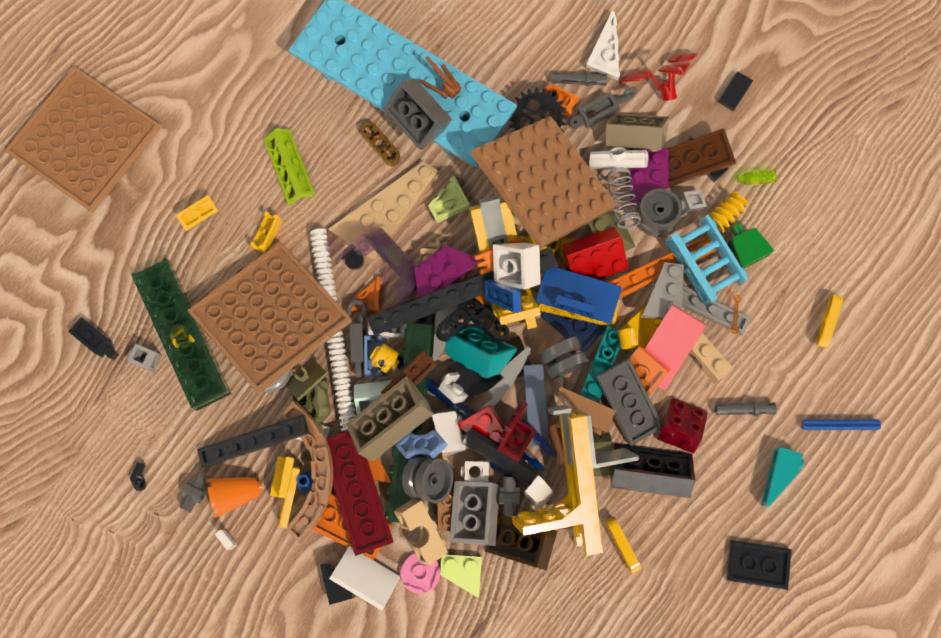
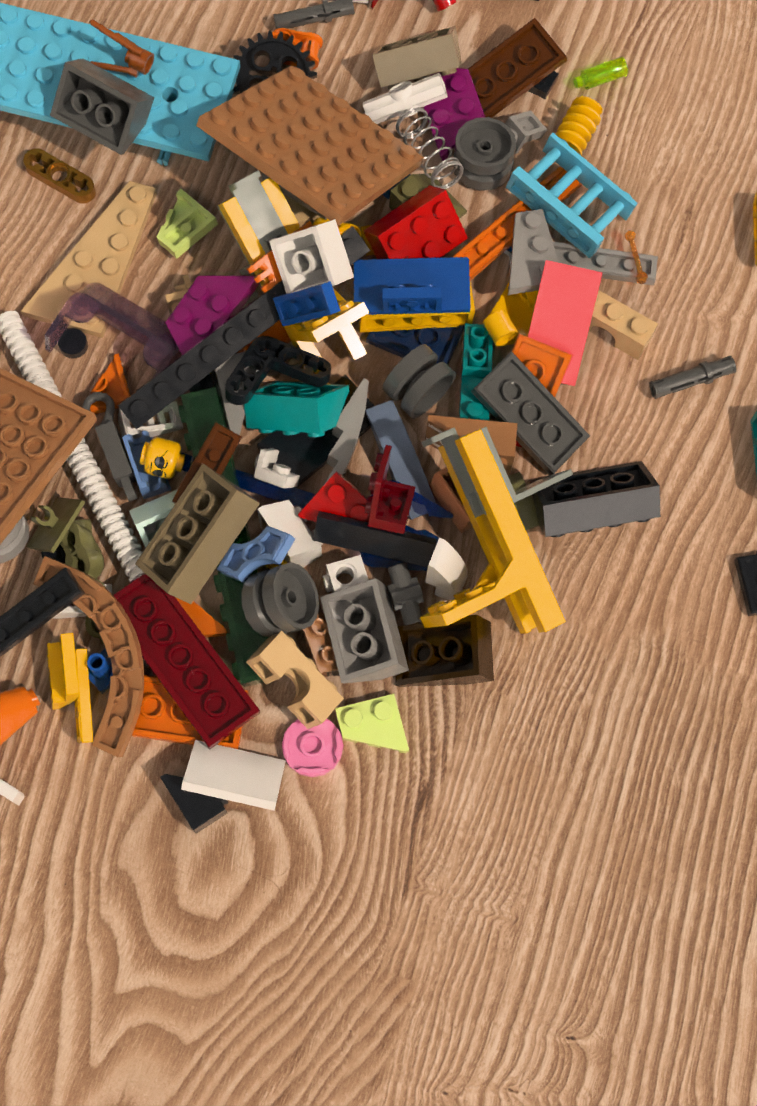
camera: 25 degrees left, 5 degrees down
(603, 107) = (361, 41): dark grey piece -> none
(622, 545) = (589, 611): yellow beam -> none
(683, 426) = (616, 426): dark red bracket -> none
(748, 246) = (623, 162): green torso -> none

